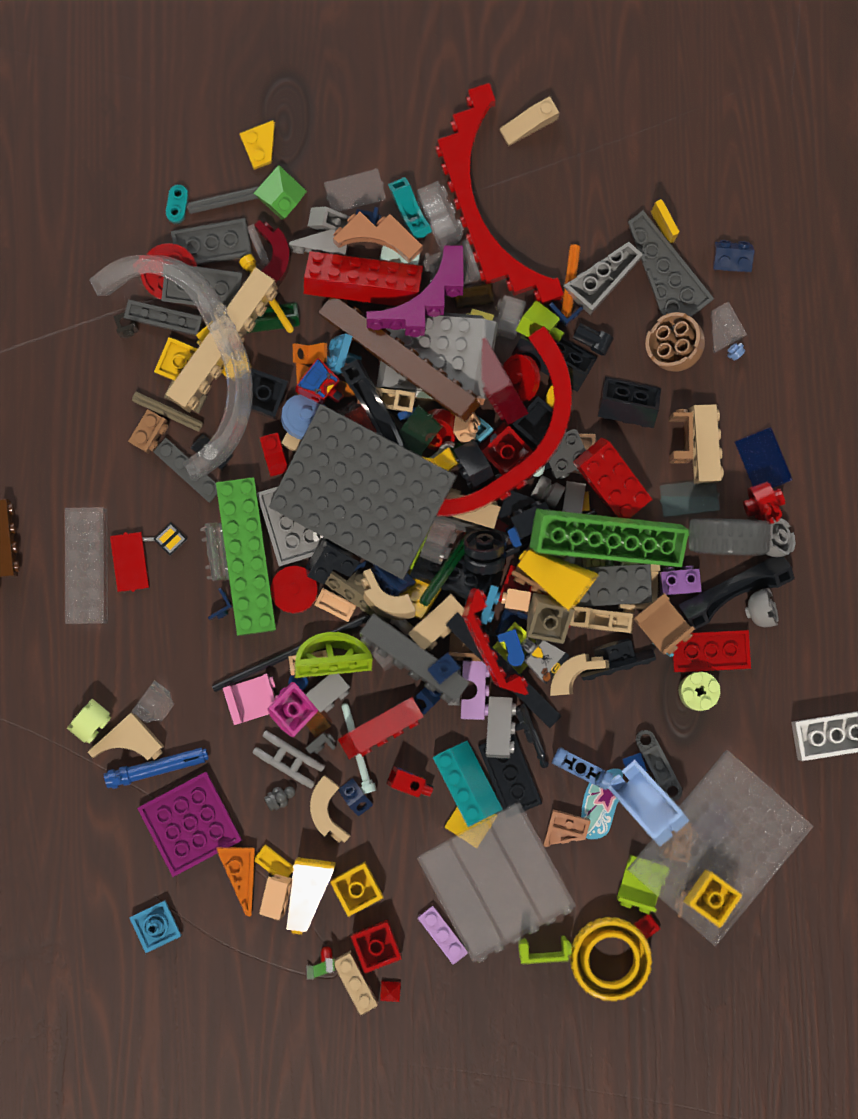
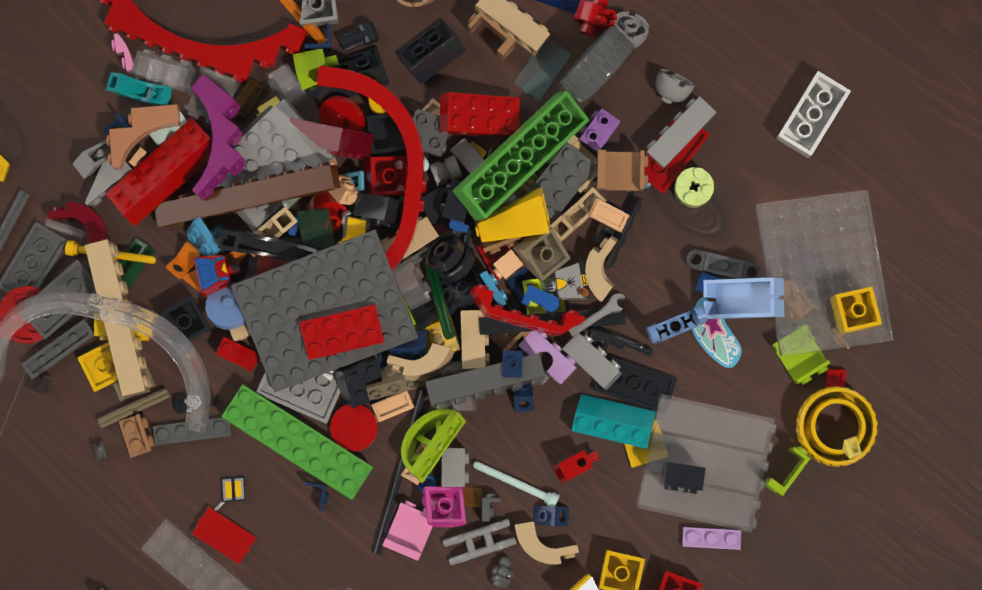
camera: 50 degrees left, 0 degrees up
(114, 415) = (101, 451): none -> dark grey bush
(215, 551) = (273, 462): clear plate -> none
(280, 192) = (40, 177): bright green slope -> none
(355, 190) = (87, 119): clear piece -> none
(357, 518) = (342, 332): none -> red plate
(361, 252) = (139, 156): none -> light nougat tile
(381, 727) = (515, 451): red wedge -> none
(429, 169) = (122, 49): none -> bright pink slope
(471, 875) = (682, 476): none -> black piece
(552, 706) = (610, 307): none -> light grey piece
(565, 828) = (710, 376): nougat wing -> none
(604, 985) = (851, 447): none -> light yellow slope
(621, 644) = (608, 215): none -> light nougat tile
(732, 645) = (677, 136): none -> light grey brick
(767, 574) = (651, 58): black arch -> none

